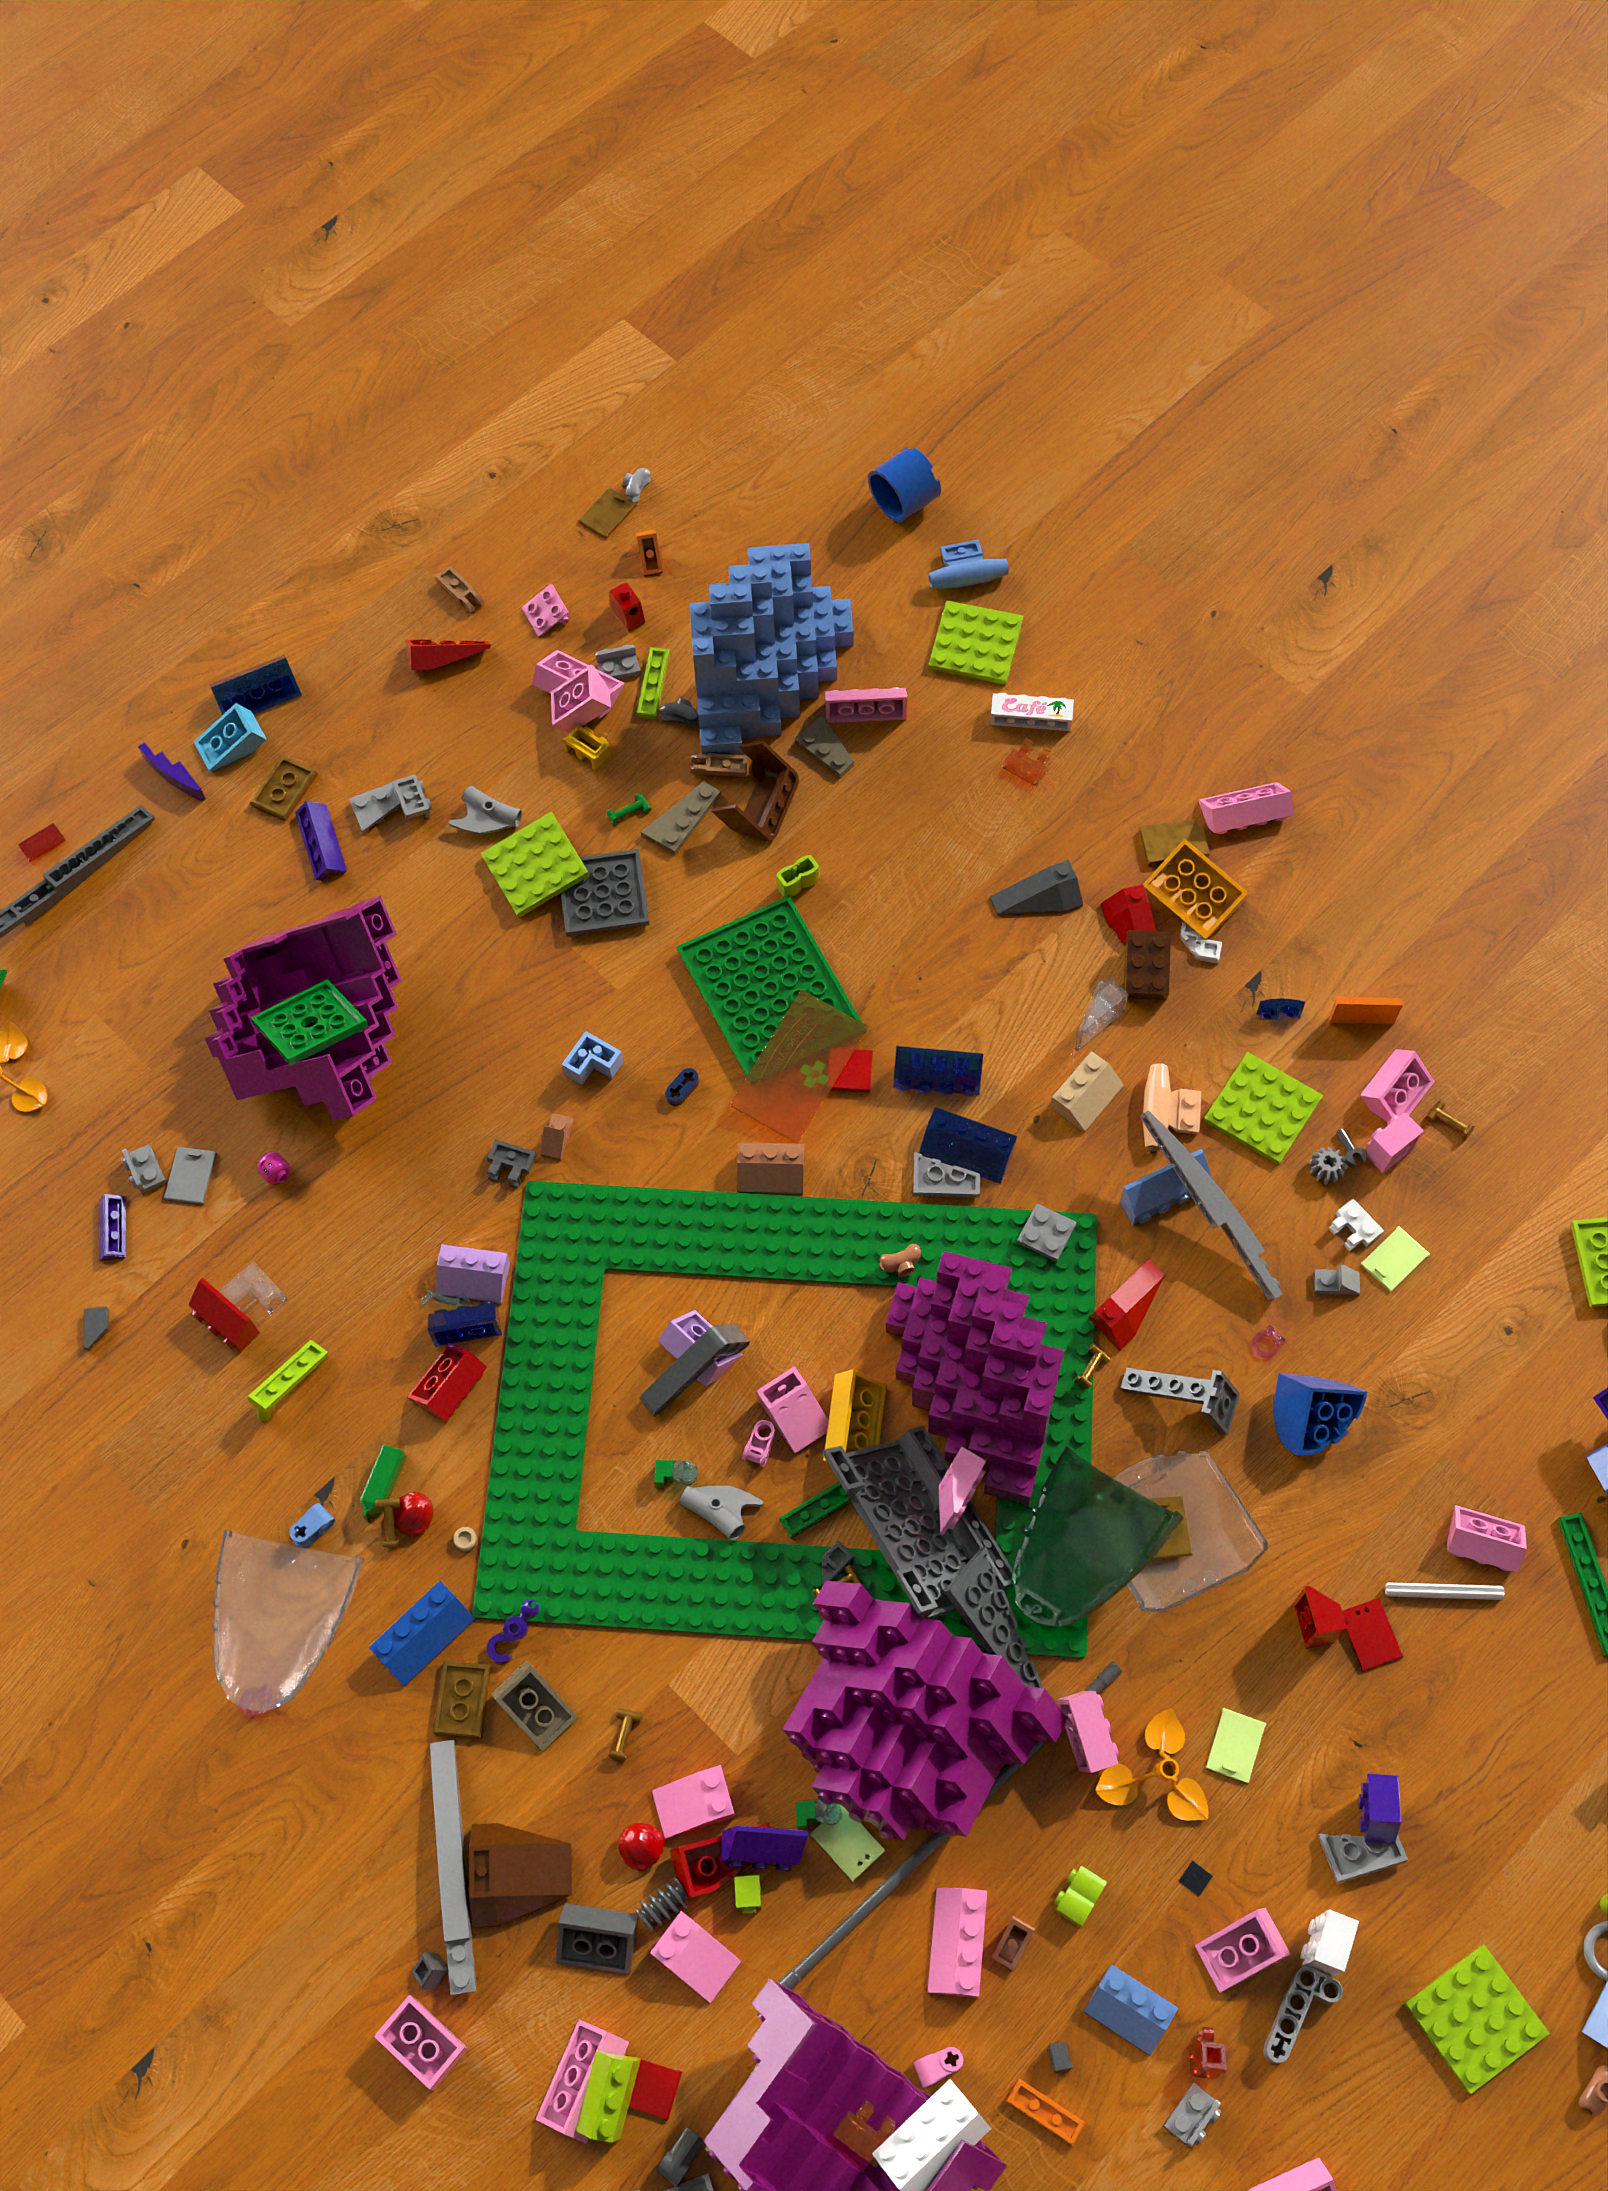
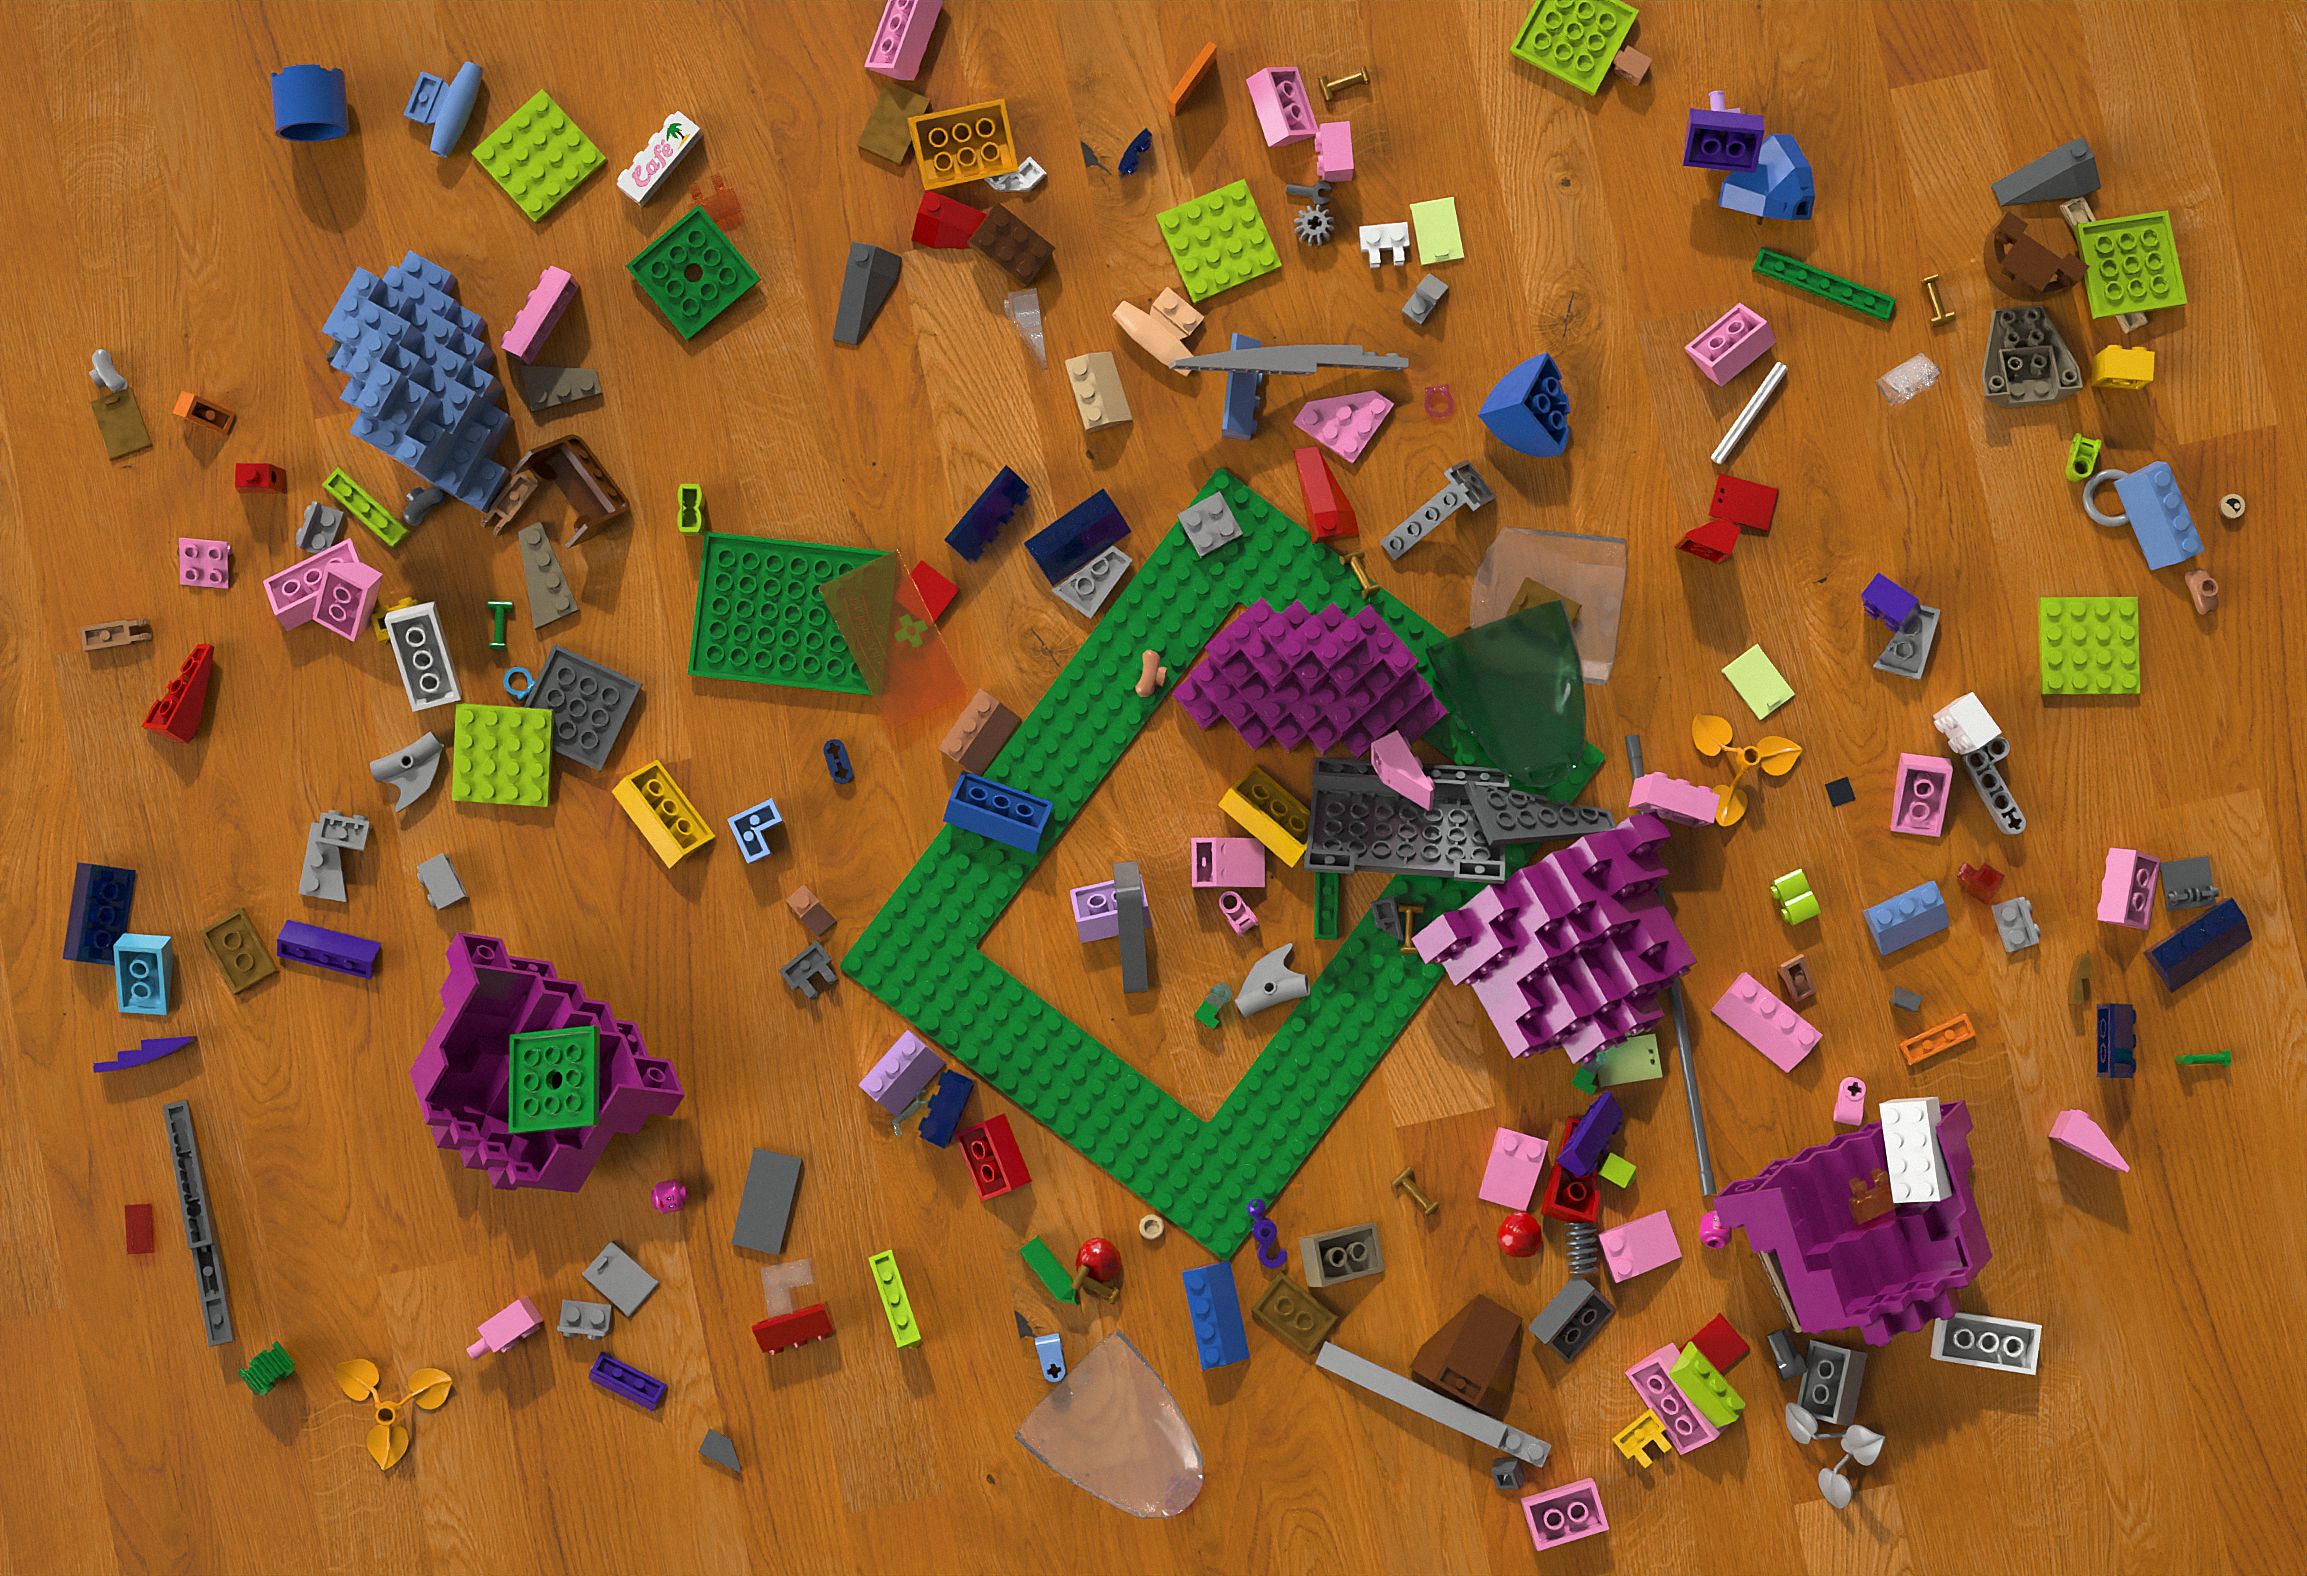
camera: 55 degrees left, 20 degrees up
(105, 1115) = (506, 1327): none -> bright pink brick
(312, 1240) = (766, 1201): none -> dark grey tile
(416, 881) = (442, 882): none -> light grey brick
(530, 2066) = (1640, 1433): none -> yellow plate
(562, 992) = (663, 813): none -> yellow slope
(570, 769) = (423, 656): none -> white brick
(586, 852) = (521, 694): none -> dark azure piece
(719, 1216) = (998, 811): none -> blue slope
(745, 2017) = (1712, 1233): none -> dark pink head
(962, 757) = (664, 266): none -> green piece
(1199, 1284) = (1344, 421): none -> bright pink plate
(1572, 1702) = (1904, 381): none -> clear slope

